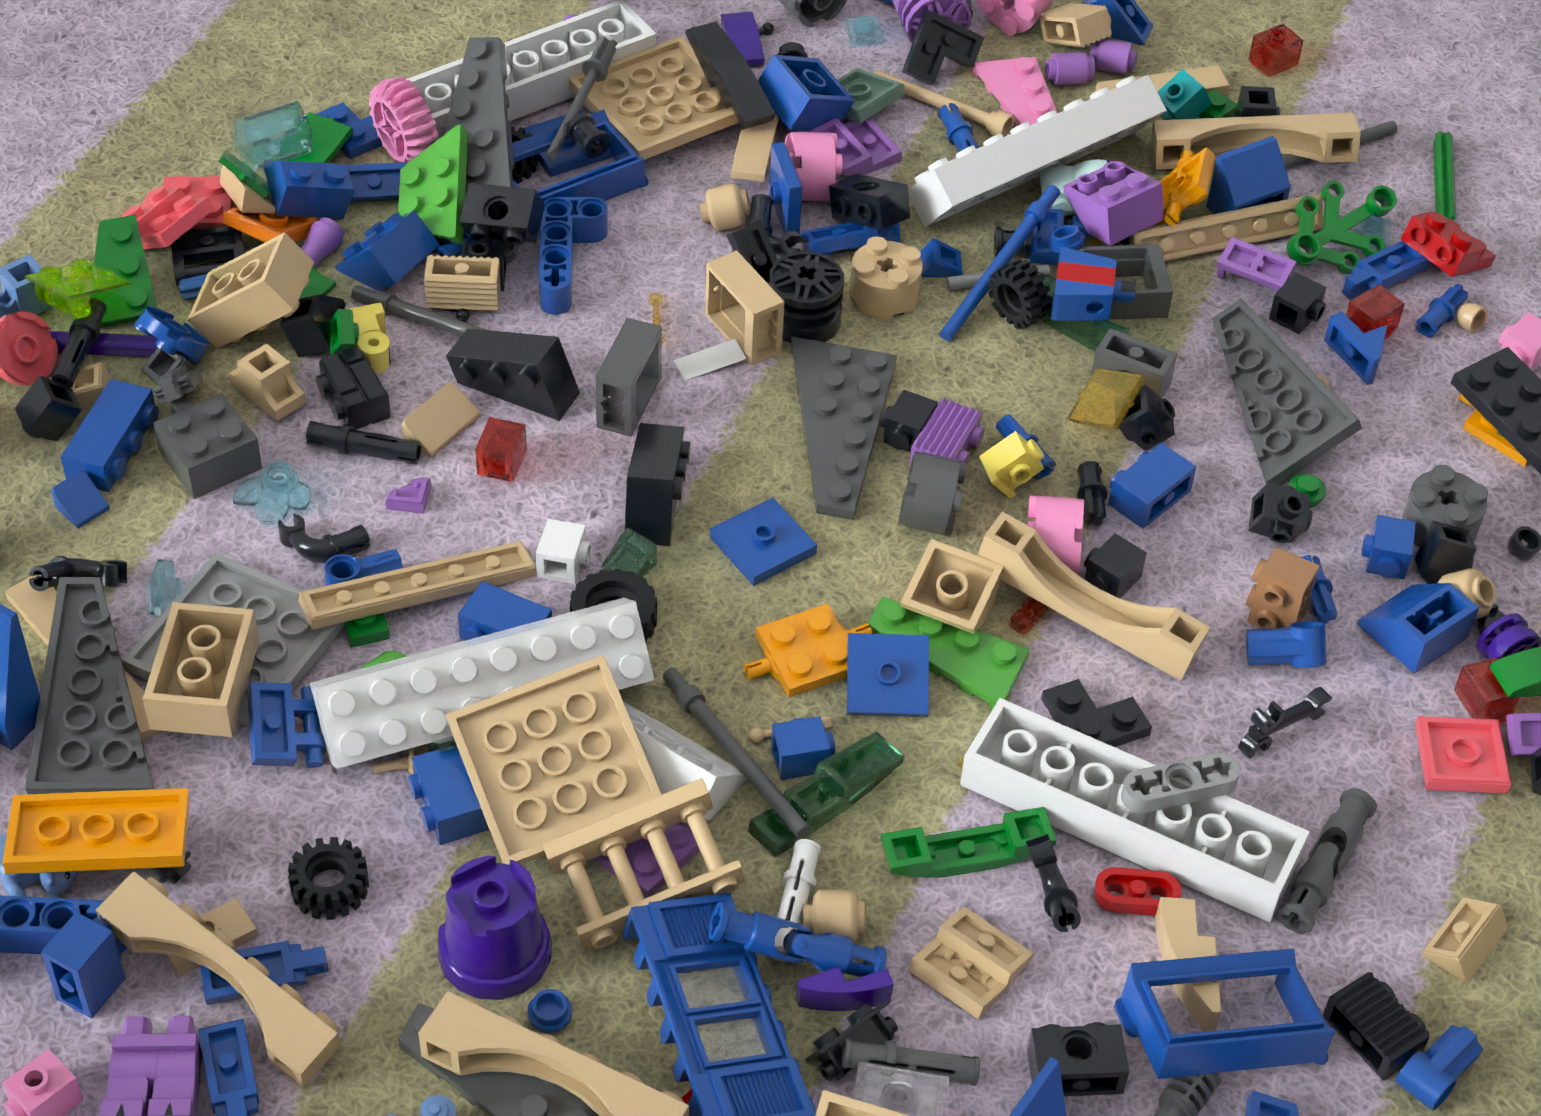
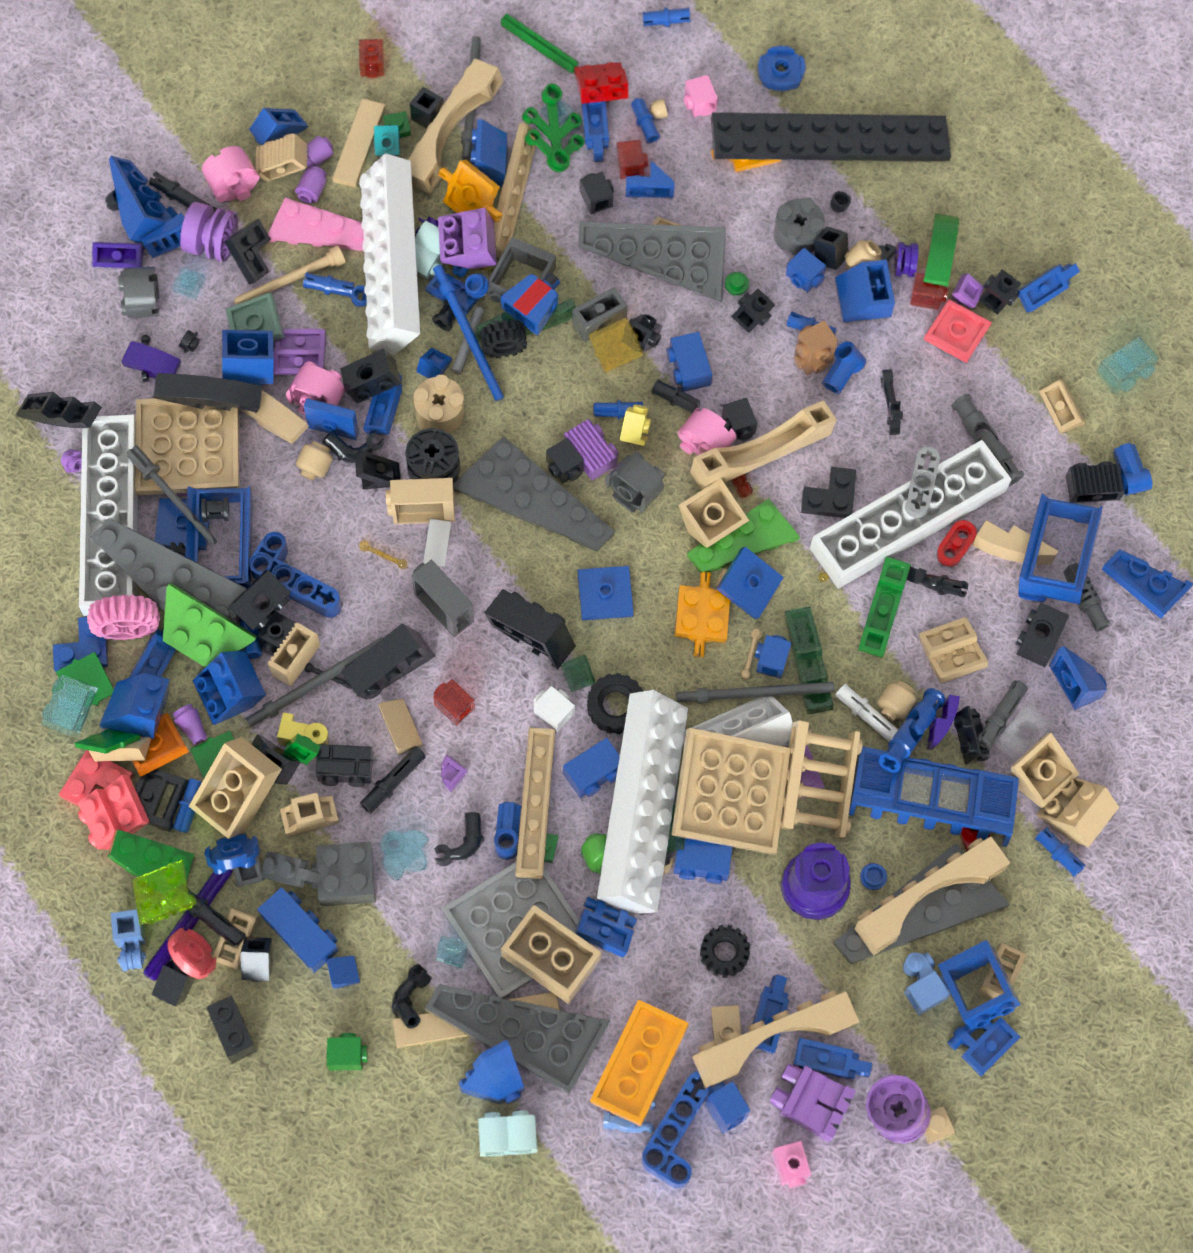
camera: 60 degrees left, 20 degrees up
(1255, 264) = (557, 196): medium lavender hinge -> none

